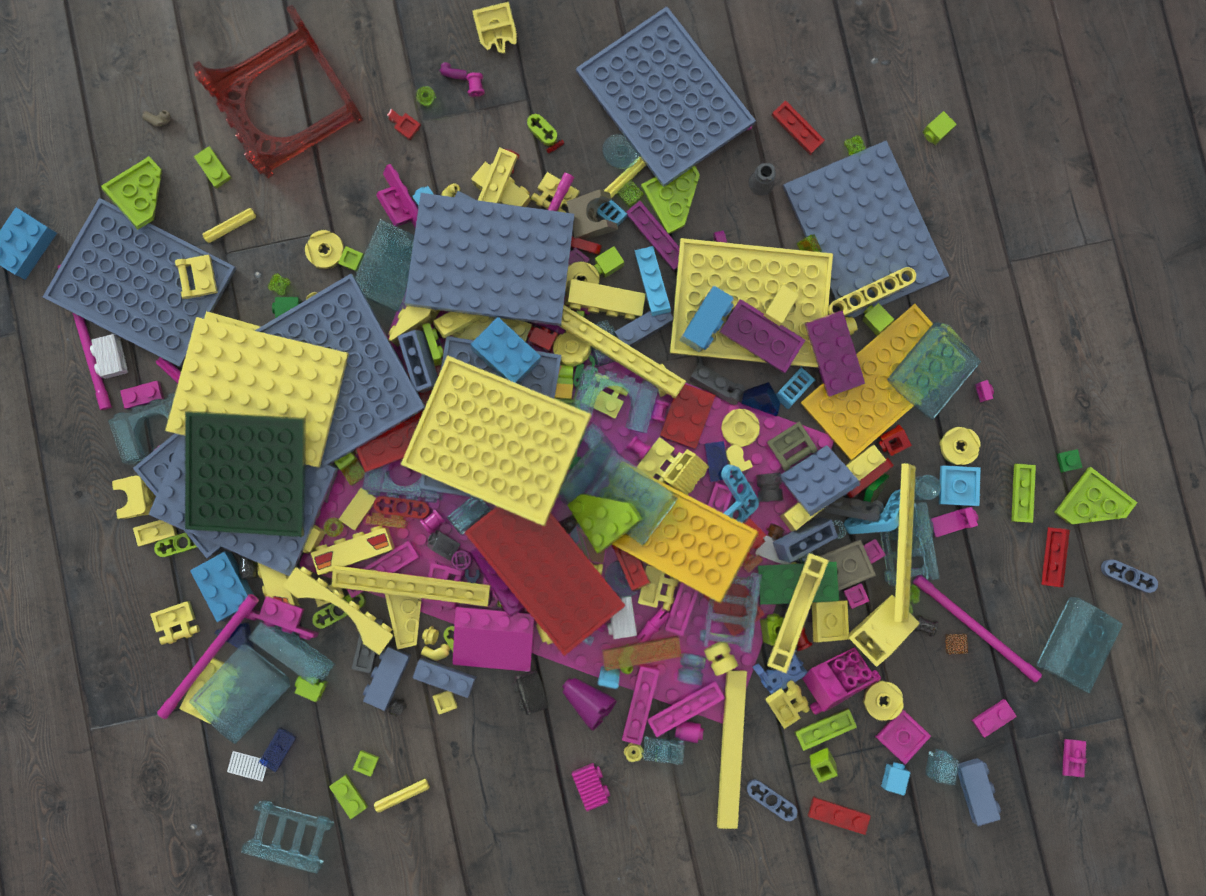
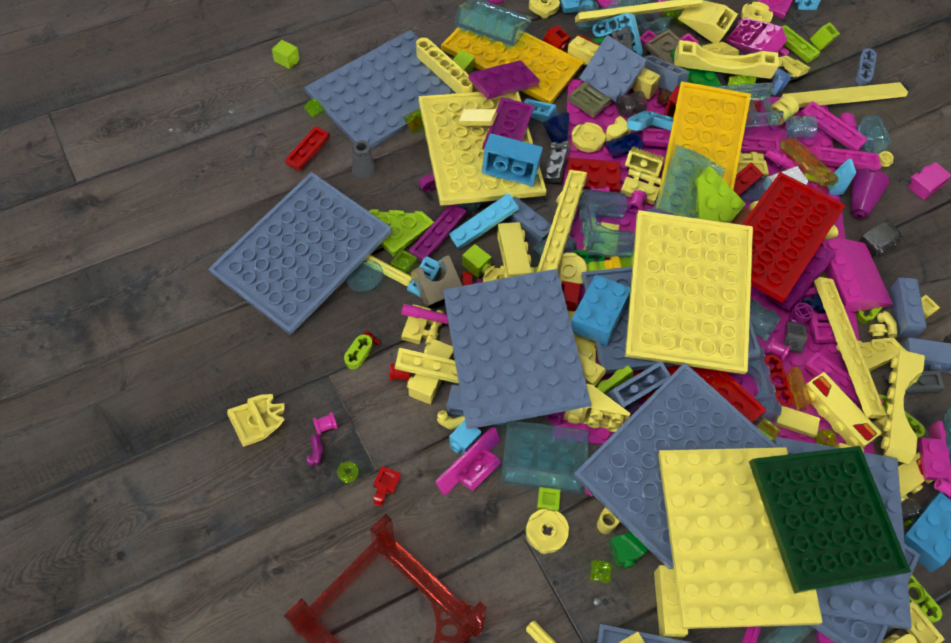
camera: 110 degrees left, 25 degrees down
(839, 815) = (852, 27): red plate -> none

